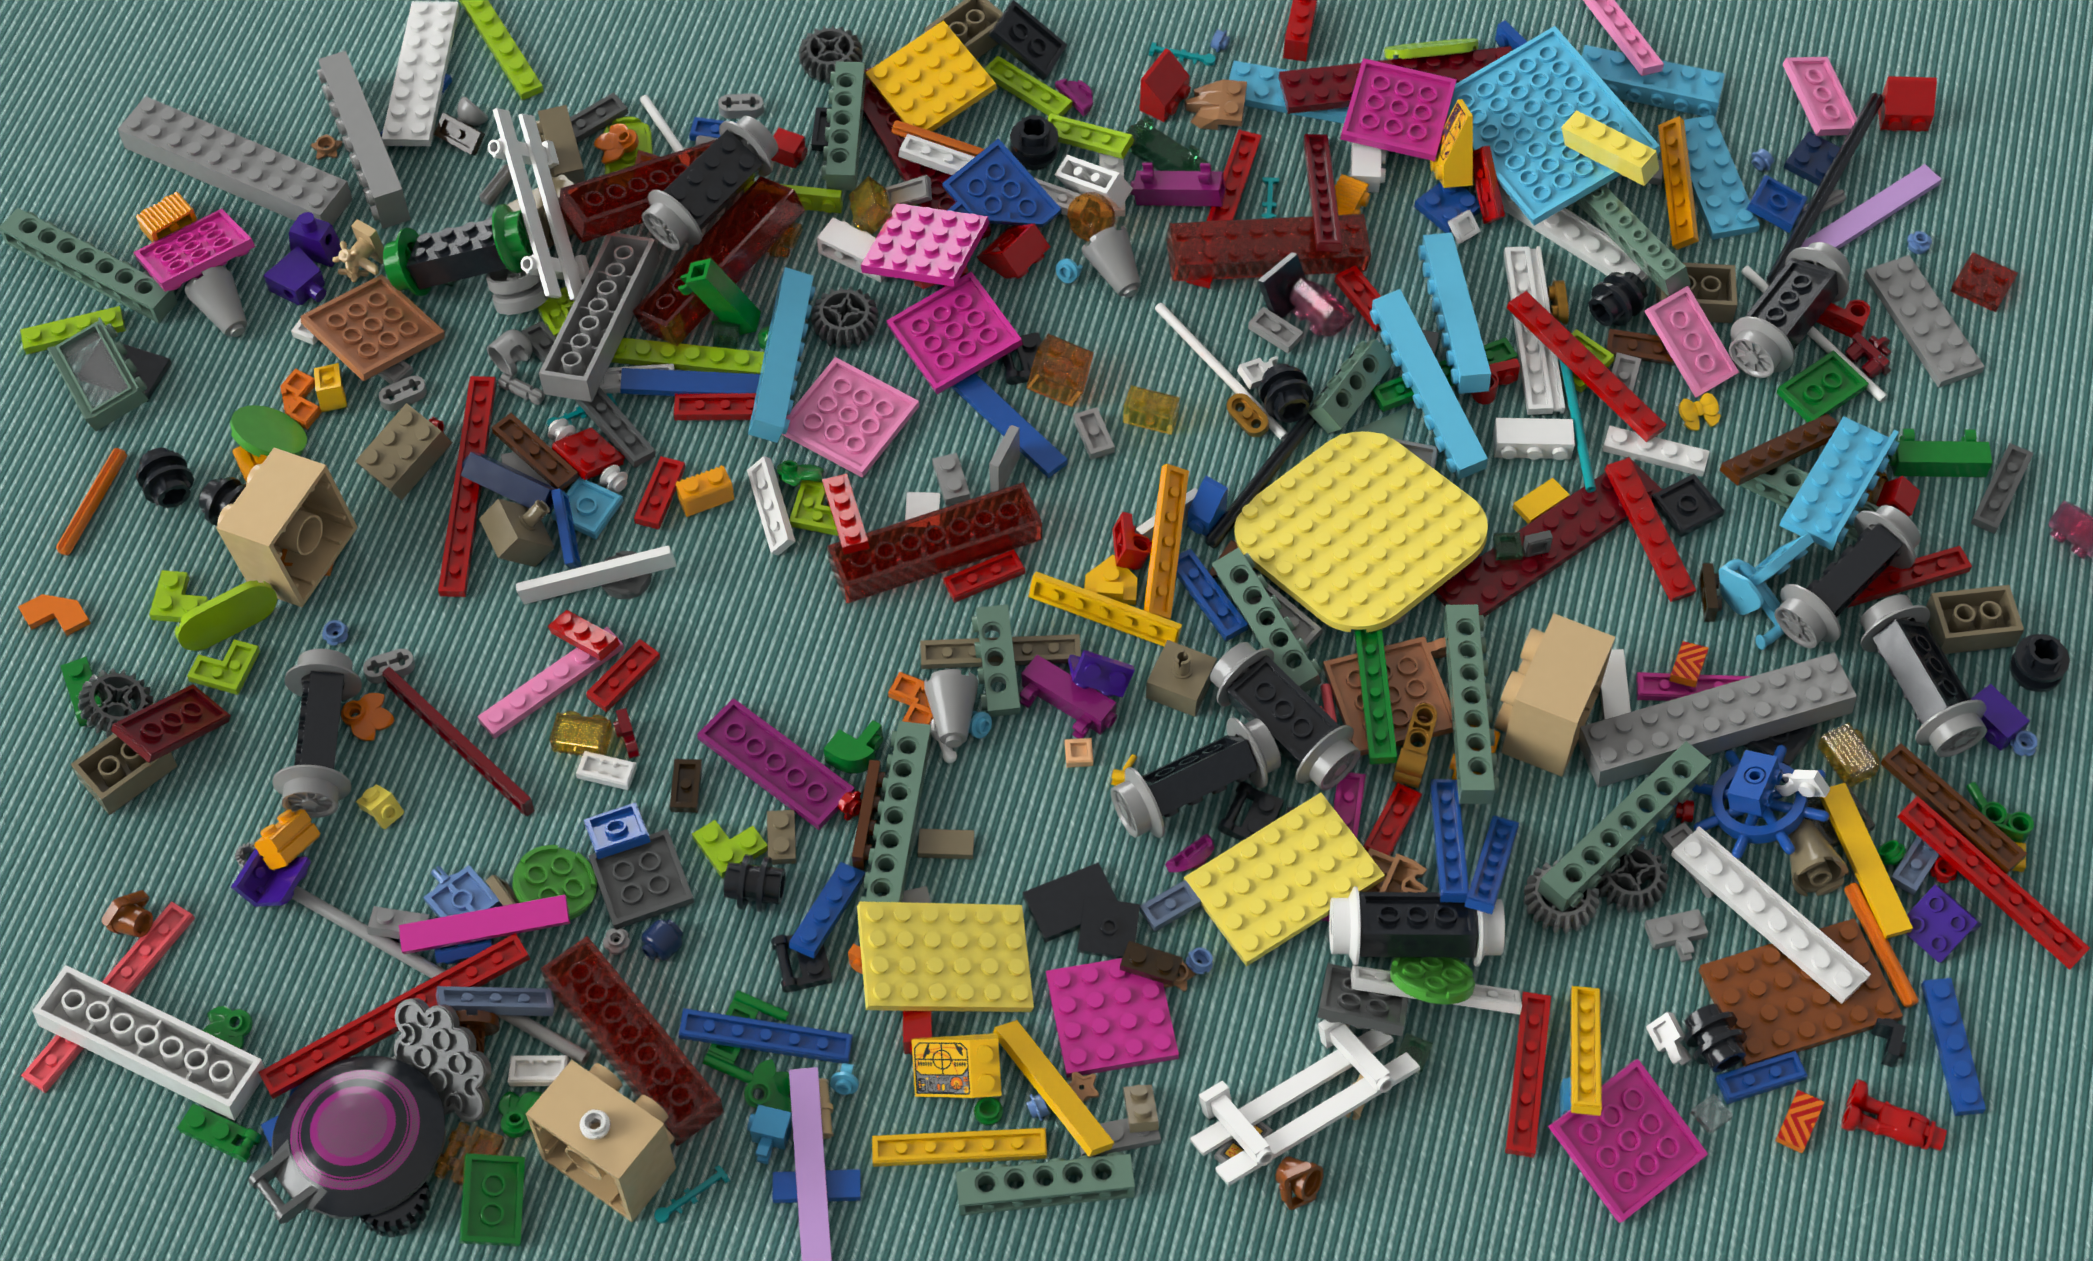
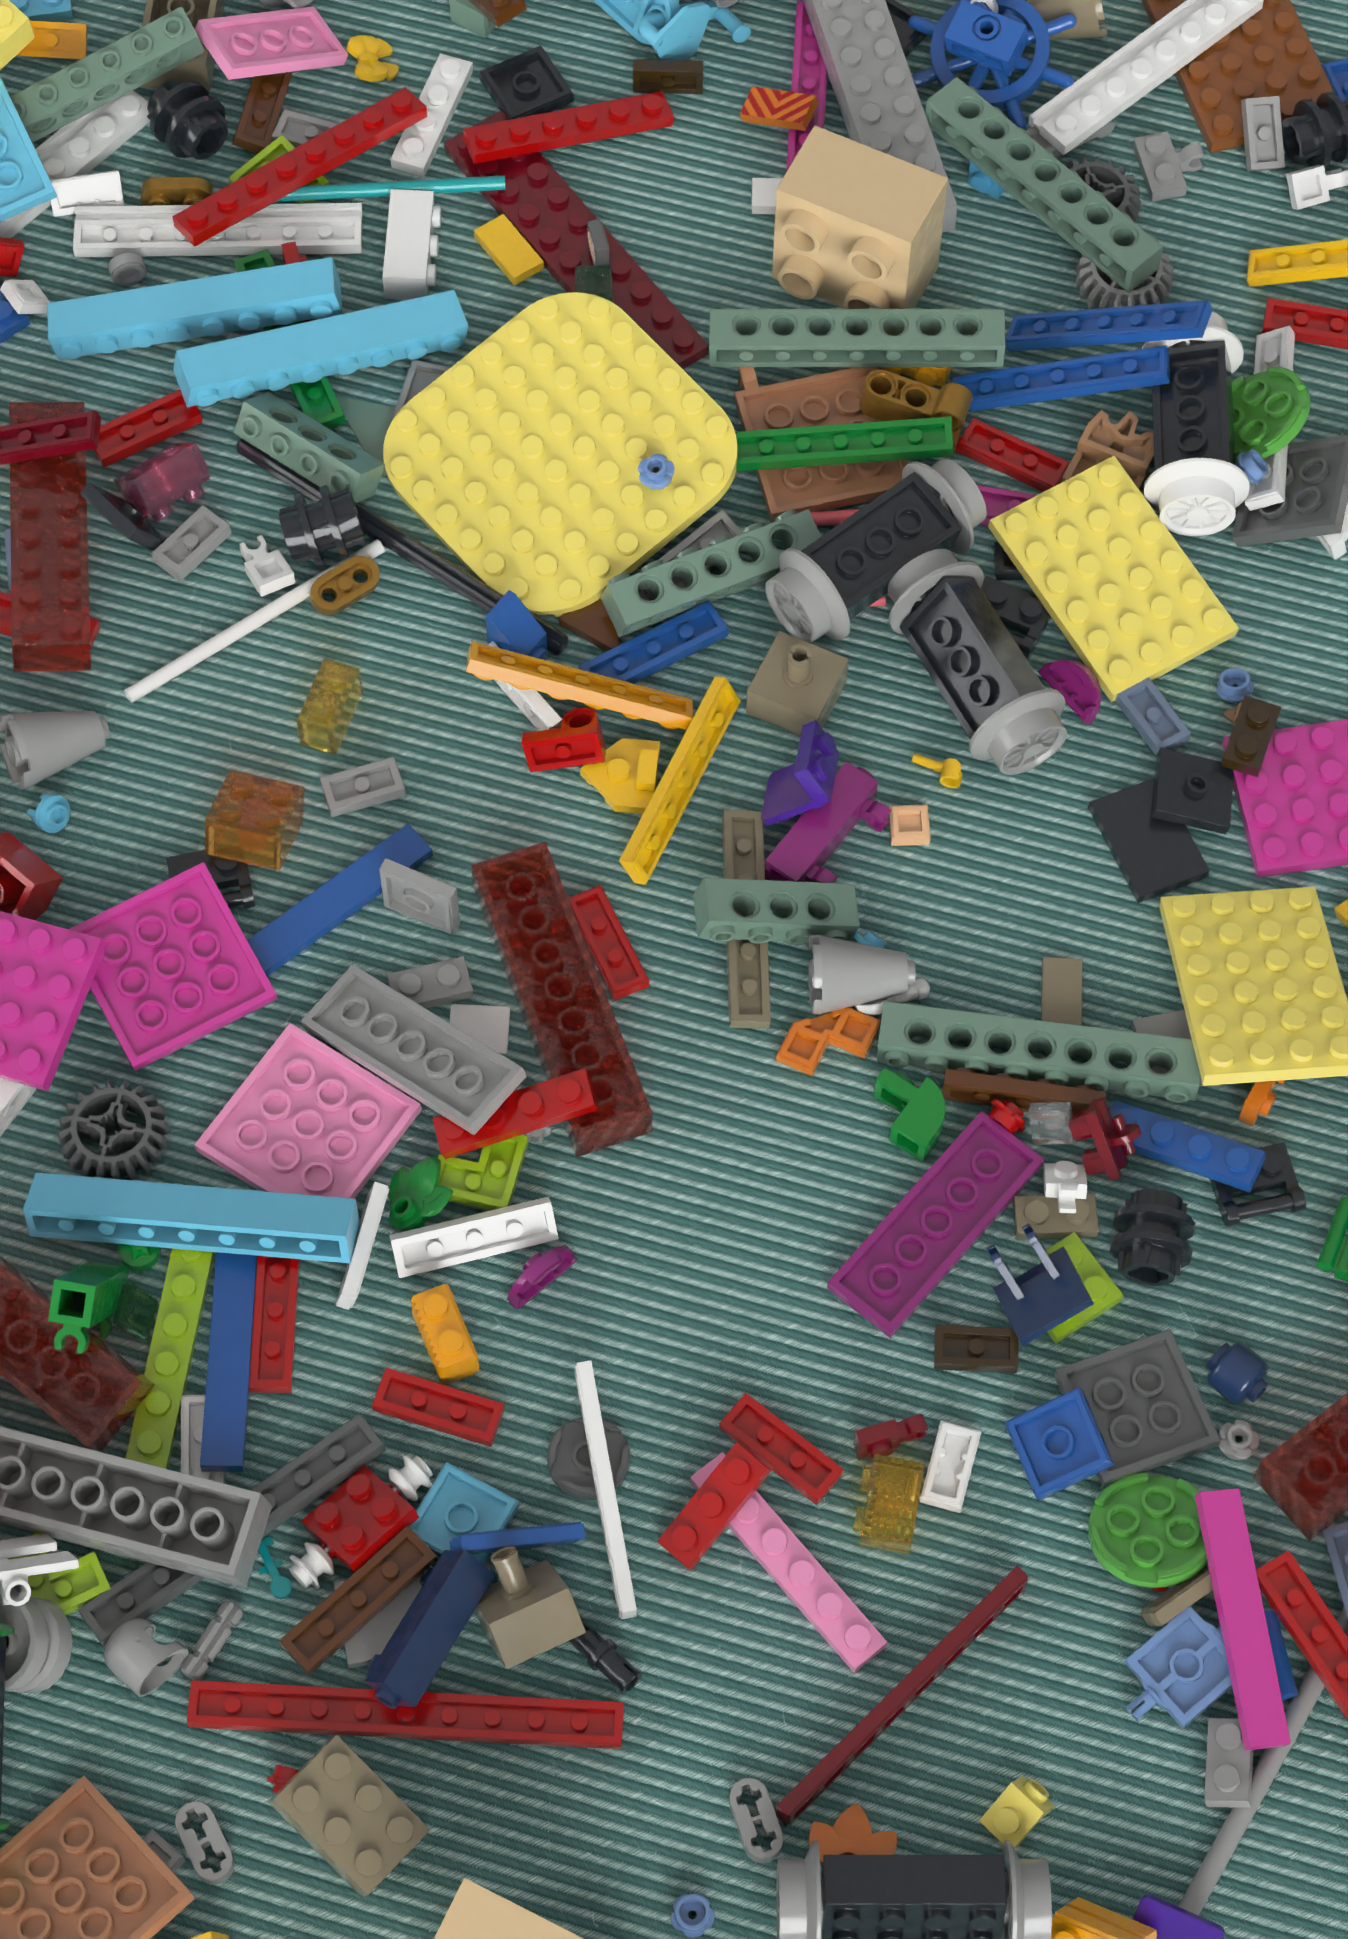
camera: 90 degrees left, 5 degrees up
(496, 582) = (605, 1658): none -> black pin
(722, 816) = (1042, 1294): none -> dark blue plate
(748, 544) = (539, 1273): none -> magenta plate
(766, 447) = (368, 1228): none -> white tile
(801, 837) = (1066, 1182): none -> white plate
(828, 857) = (1111, 1137): none -> dark red hips
(845, 829) = (1050, 1122): none -> clear plate
(892, 459) = (414, 1049): none -> light grey plate
(1335, 575) = (657, 480): none -> medium blue plate
(1382, 968) = (1252, 465): none -> medium blue plate
(1493, 279) = (127, 268): none -> light grey tile
(1554, 252) = (86, 190): none -> white plate
(1717, 991) = (1263, 133): none -> light grey plate

